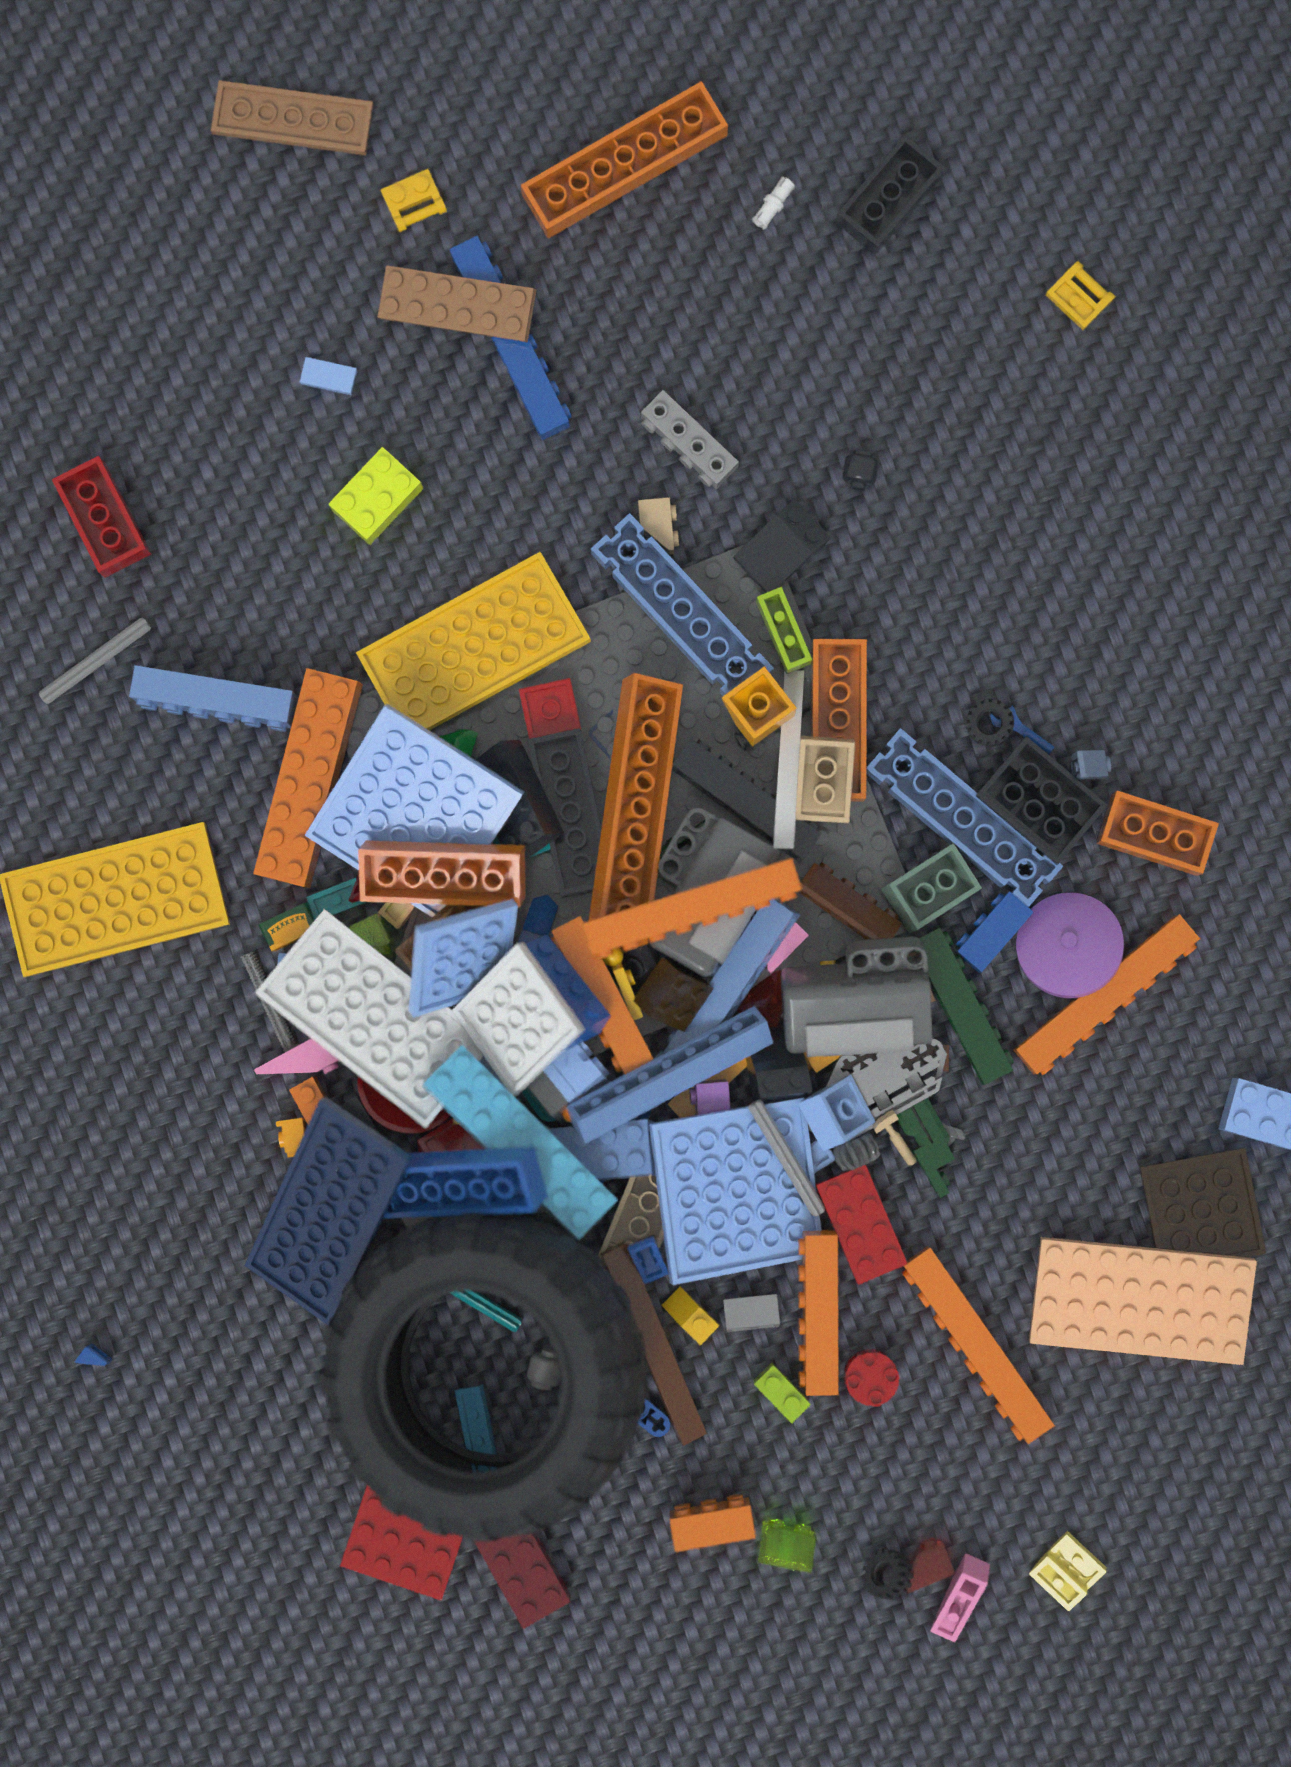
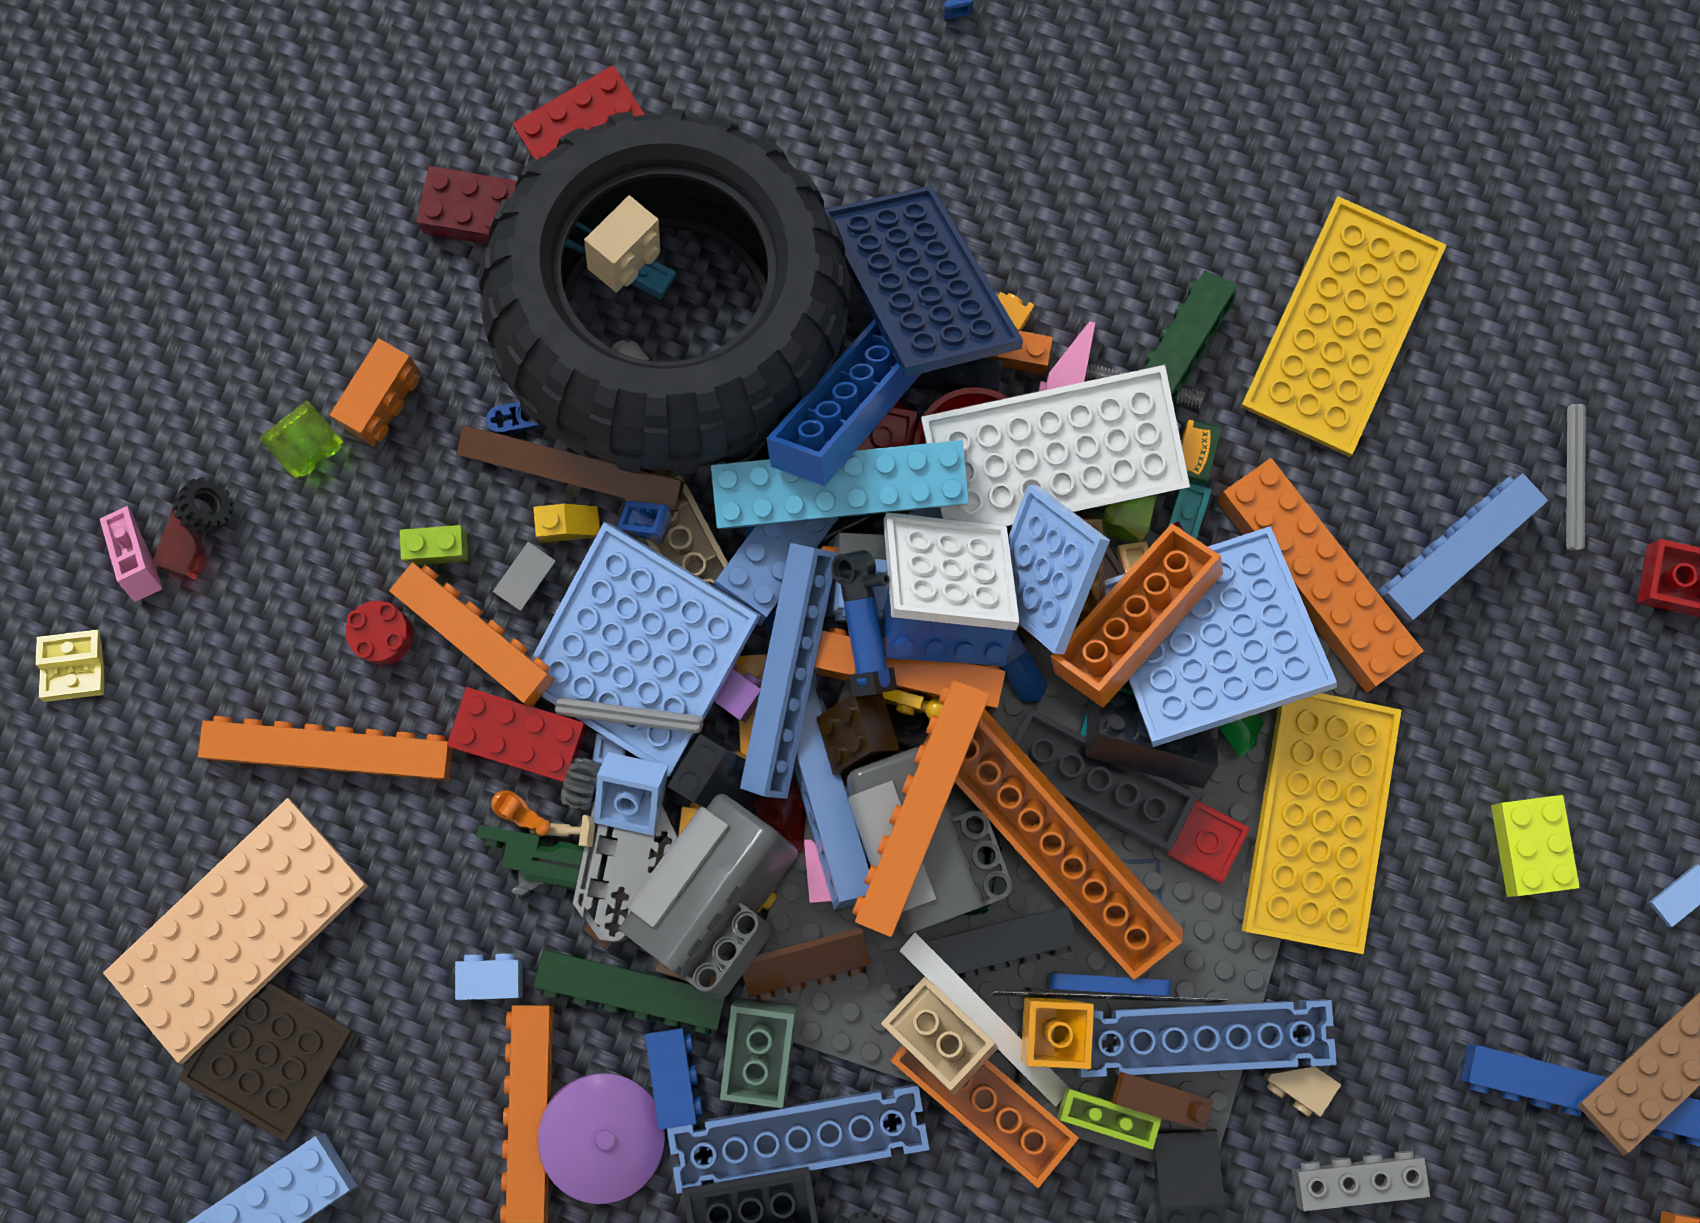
camera: 125 degrees right, 5 degrees down
(208, 998) = (1192, 329): none -> dark green brick
(487, 1413) = (623, 244): none -> tan brick
(574, 1078) = (857, 578): none -> piece
(697, 698) = (1110, 984): none -> blue beam
(705, 690) = (1108, 997): none -> black sticker
(745, 604) = (1162, 1101): none -> reddish brown slope
(909, 1185) = (514, 809): none -> orange piece
(1031, 1105) = (488, 978): none -> light blue brick

